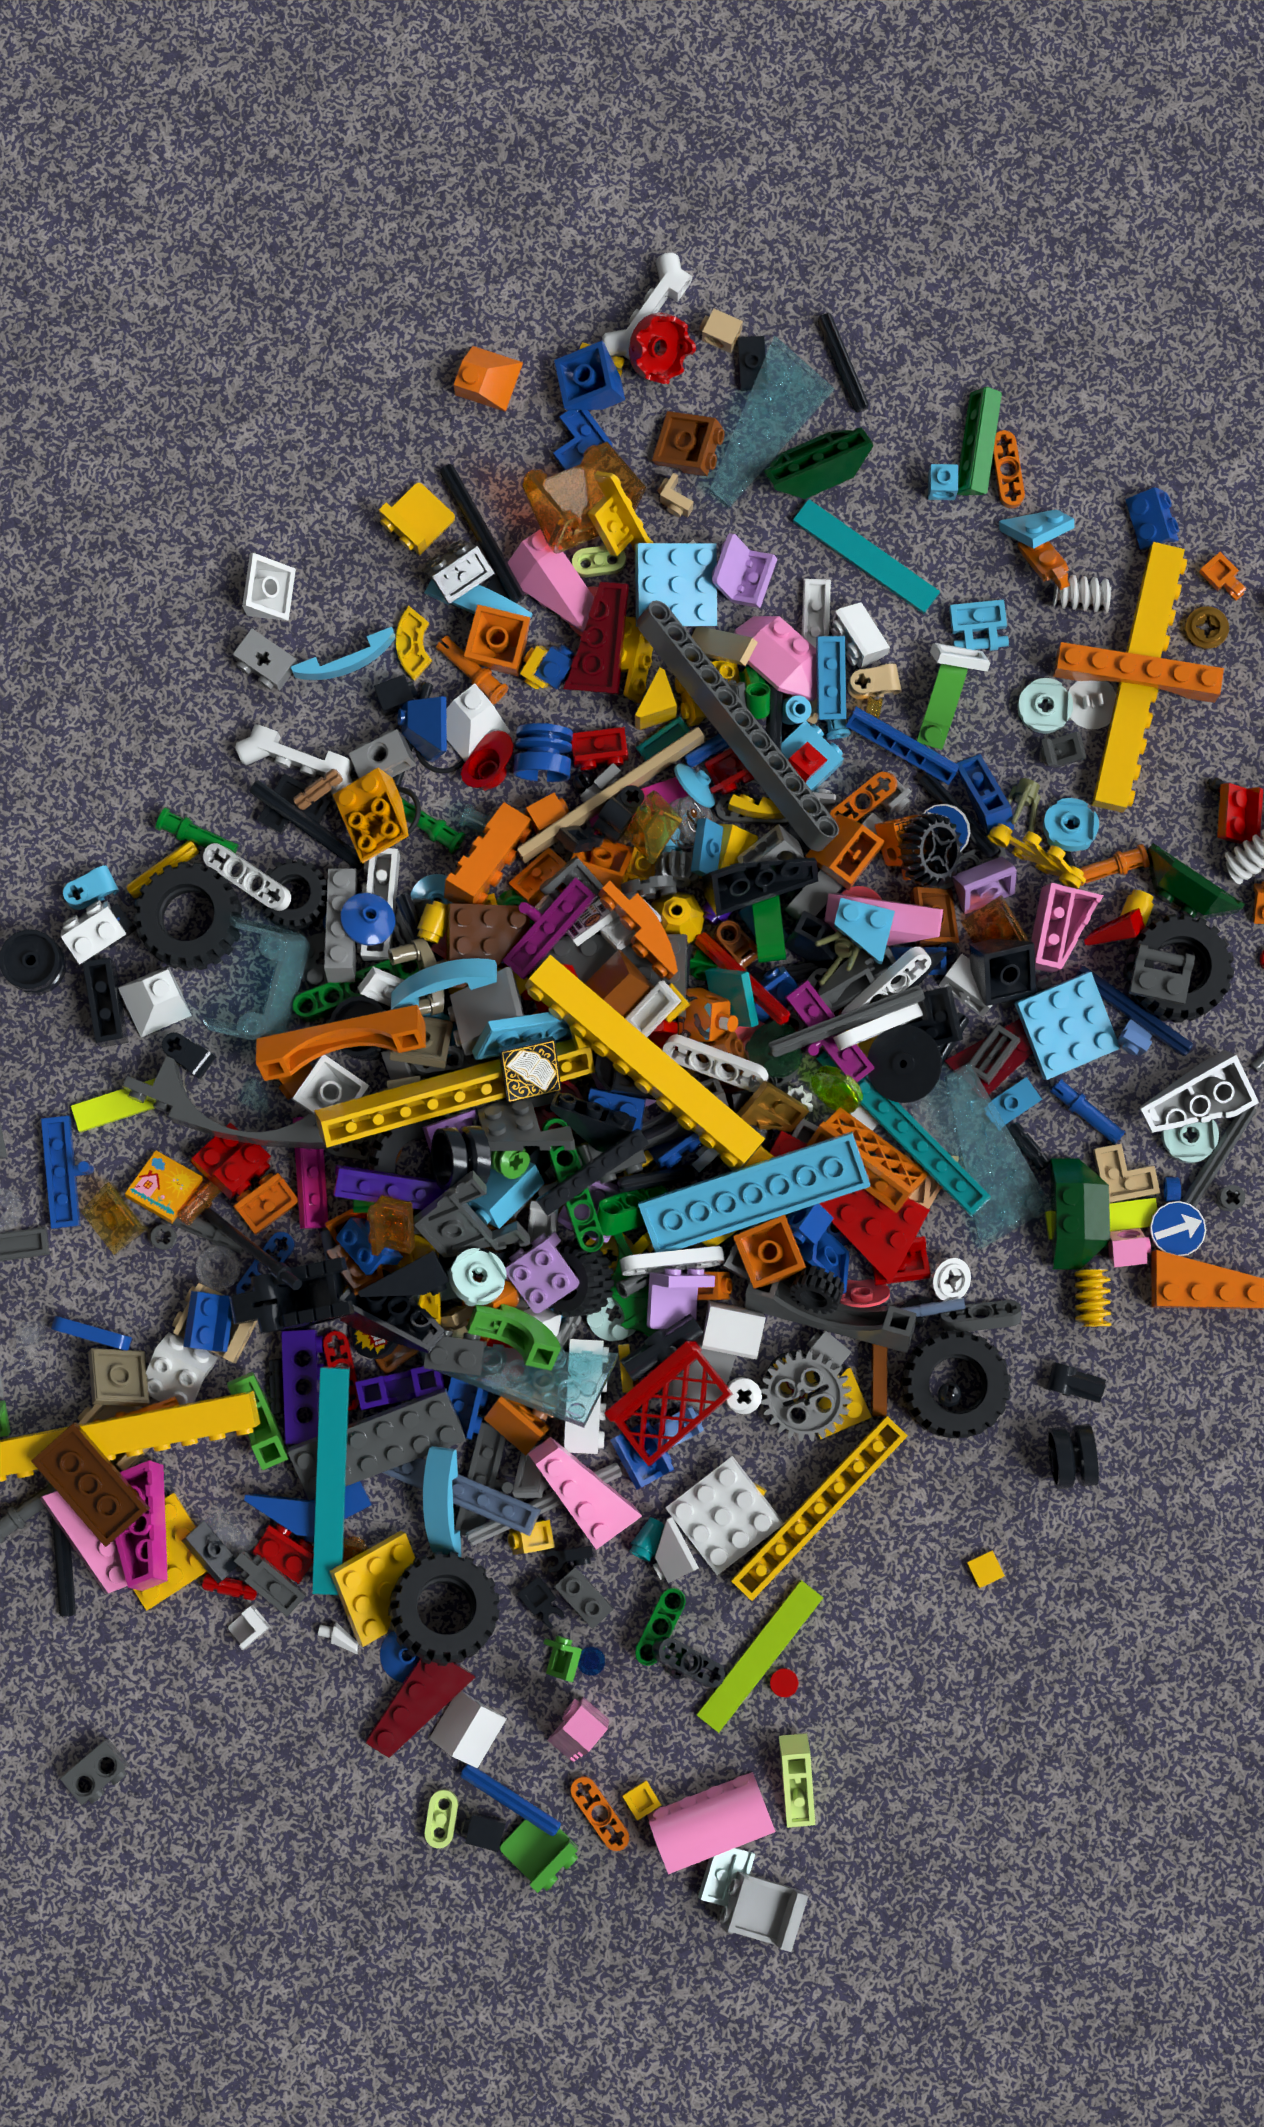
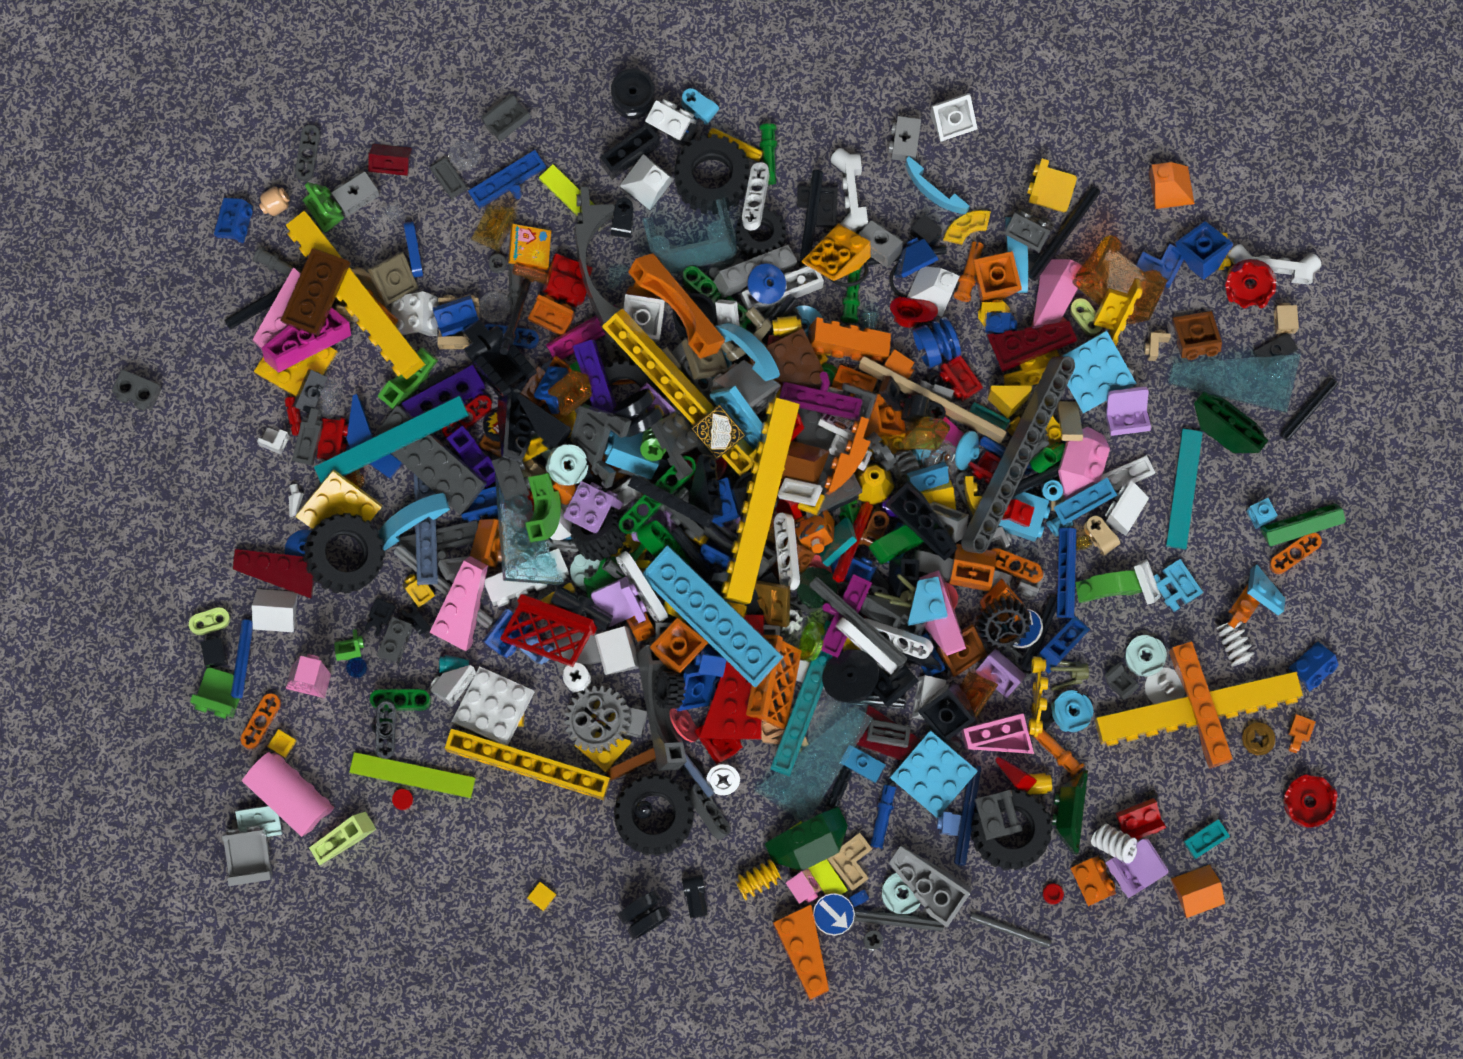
camera: 60 degrees right, 5 degrees down
(318, 789) = (837, 212): medium nougat axle -> none

